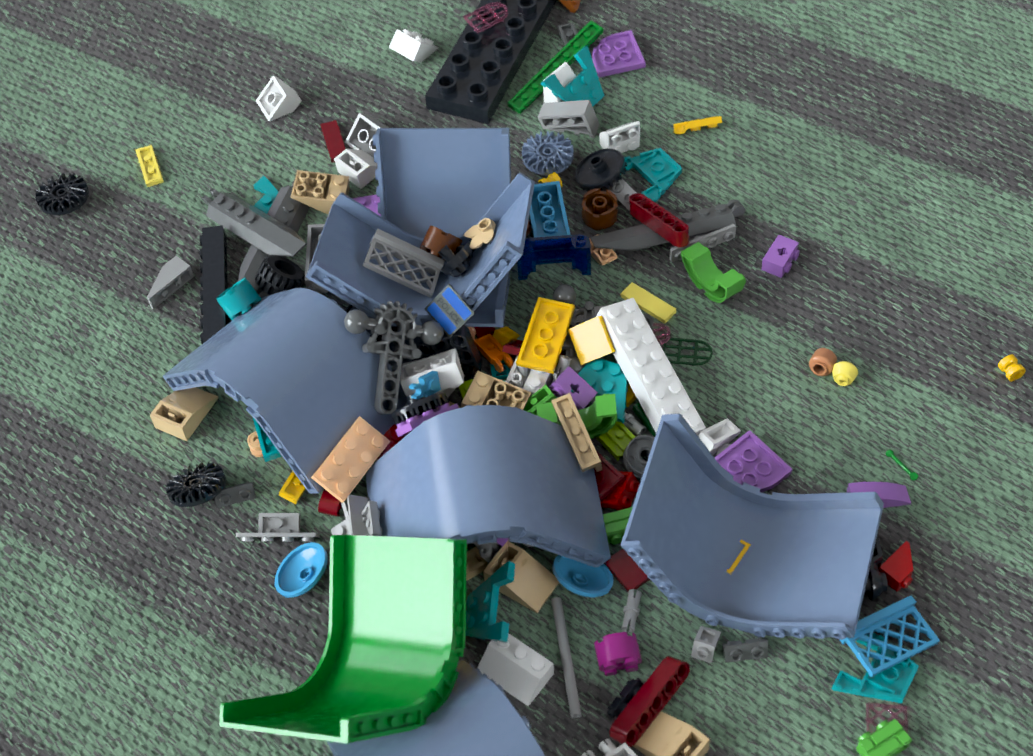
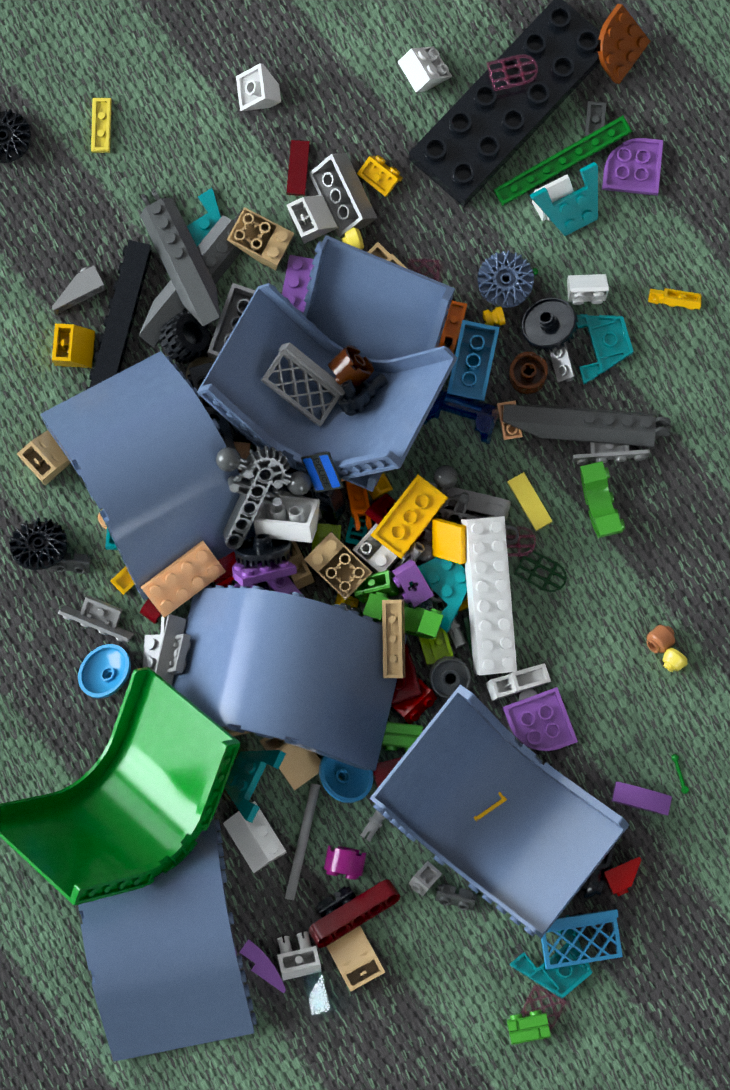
camera: 20 degrees right, 25 degrees up
(176, 322) = (73, 346): none -> yellow slope
(238, 298) = (137, 349): teal brick -> none
(402, 119) = (379, 174): none -> yellow bracket
(427, 386) = (275, 538): dark azure plate -> none
(481, 233) = (389, 378): tan plate -> none
(569, 116) = (547, 238): light grey wedge -> none
(659, 220) = (576, 409): dark red beam -> none
(780, 255) = (685, 491): medium lavender brick -> none

